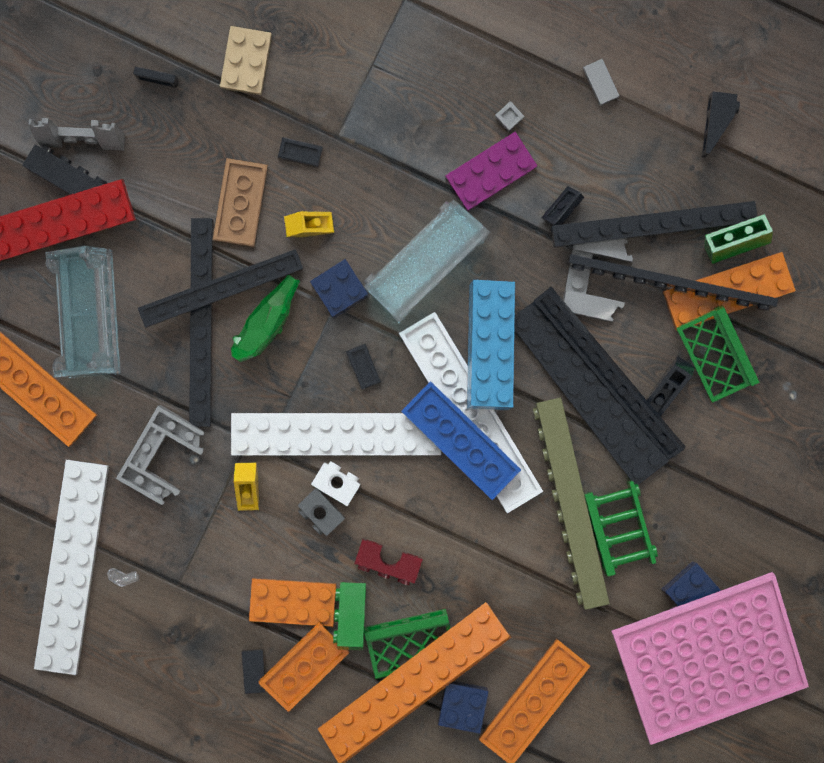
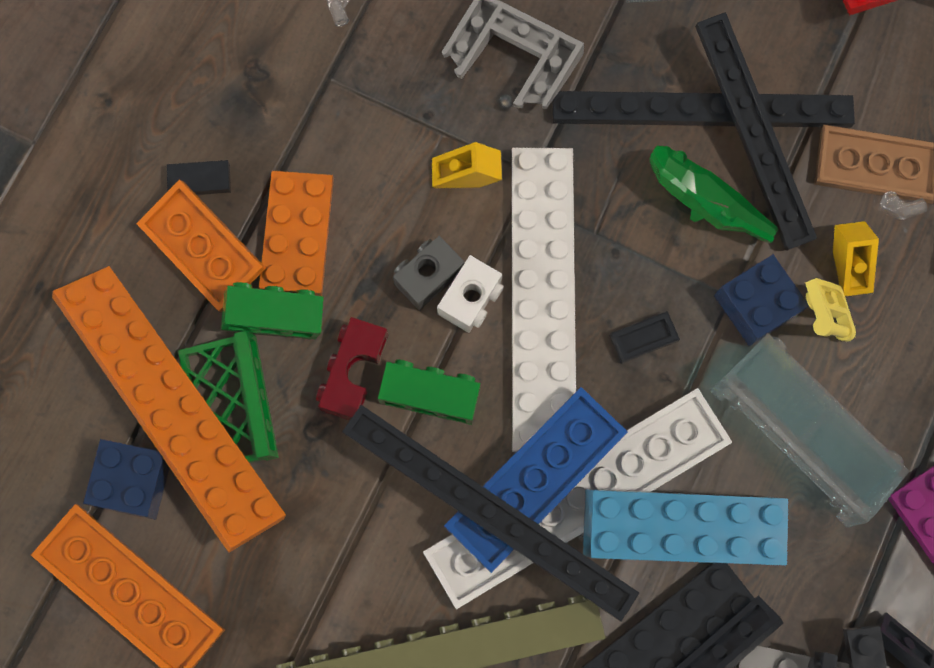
camera: 90 degrees right, 10 degrees down
(272, 191) = (899, 209): none -> clear arm
(340, 247) = (829, 303): none -> light yellow plate
(402, 510) = (429, 391): none -> green brick
(484, 472) = (491, 513): none -> black plate

